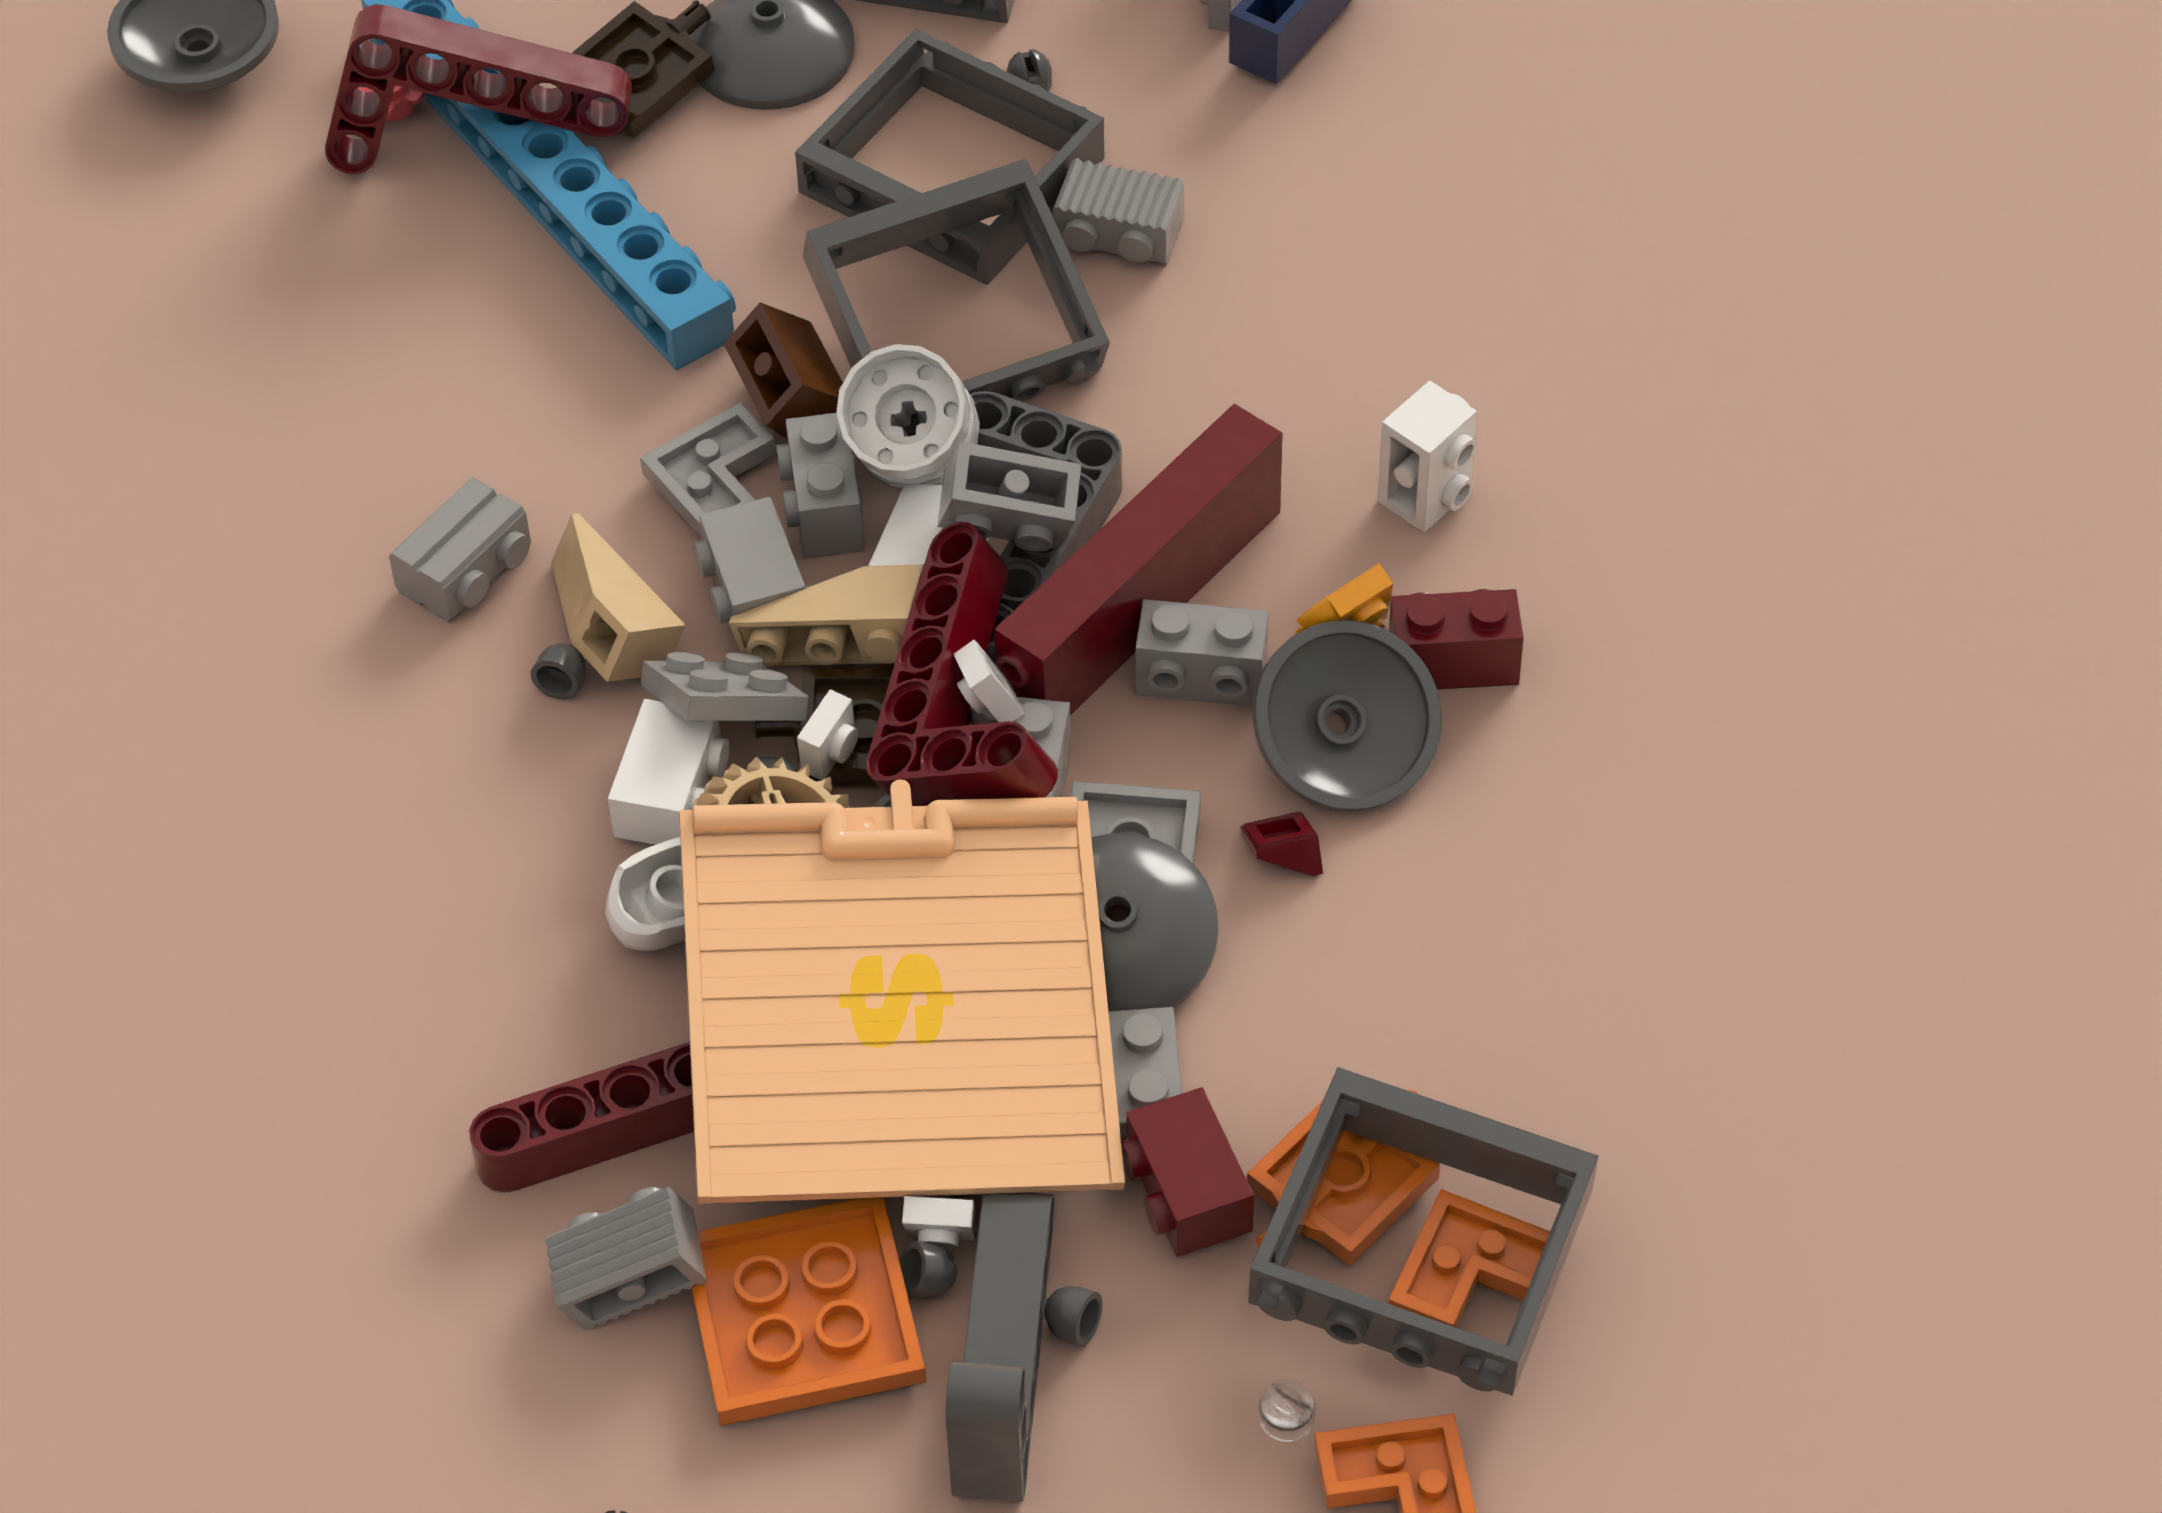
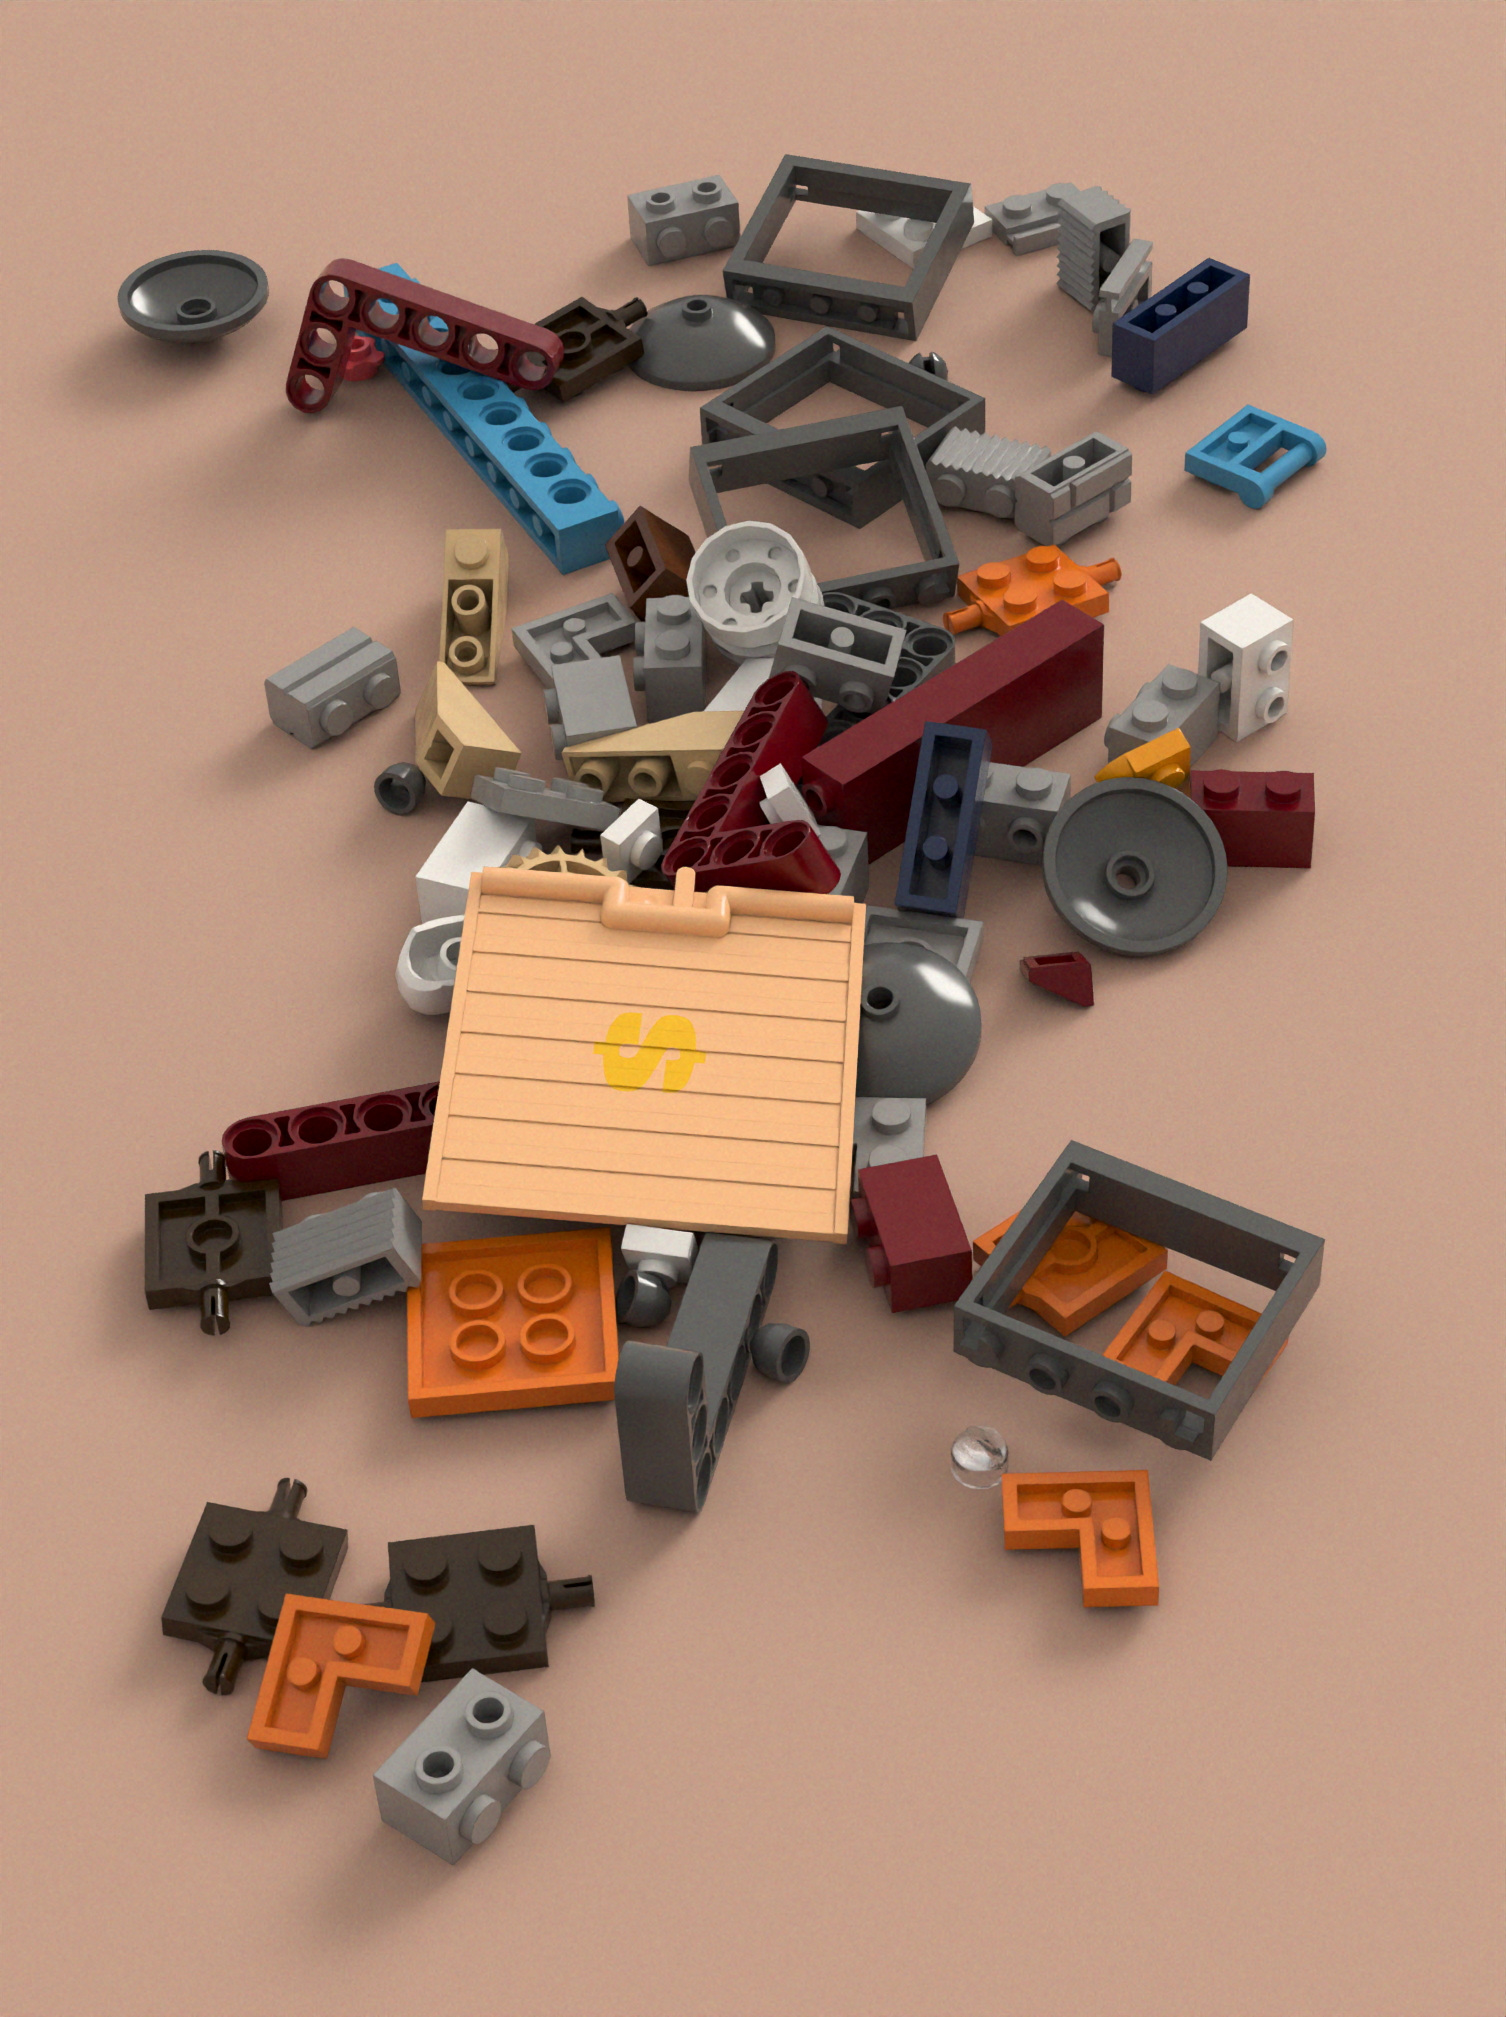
camera: 10 degrees right, 10 degrees down
(478, 1248) = (211, 1242): none -> dark brown plate
(592, 433) = (474, 603): none -> tan slope
(1149, 689) = (944, 820): none -> dark blue brick
(1186, 364) = (1019, 588): none -> orange plate
(1214, 231) = (1073, 489): none -> light grey brick
(1352, 533) = (1169, 702): none -> light grey brick
(1384, 149) = (1246, 441): none -> dark azure plate

